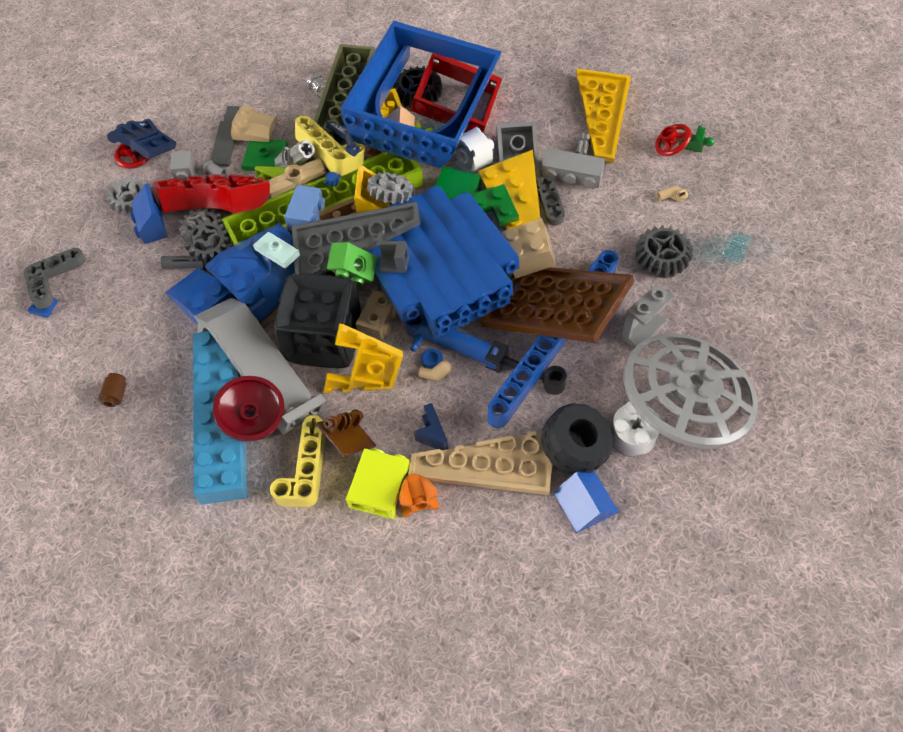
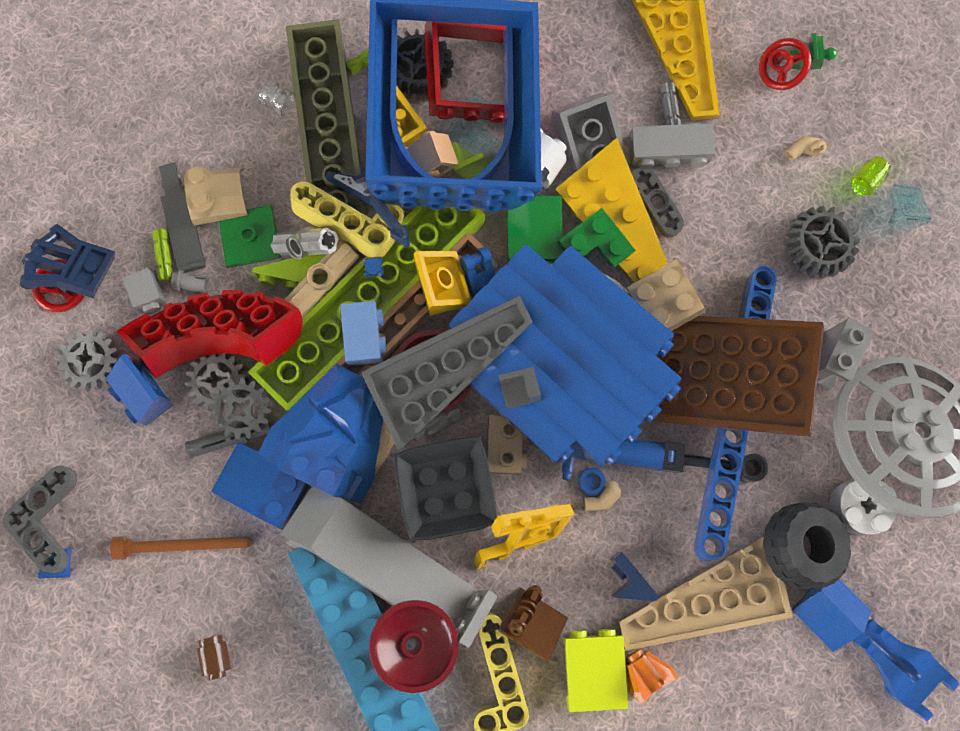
camera: 30 degrees left, 20 degrees up
(90, 307) = (123, 547): none -> dark orange piece
(205, 150) = (162, 254): none -> lime axle
(276, 250) = (357, 416): light aqua plate -> none
(352, 263) = (470, 413): bright green brick -> none
(390, 188) = (471, 273): light grey gear -> none
(631, 559) = (906, 670): none -> blue animal
(715, 220) = (870, 176): none -> clear neon green brick

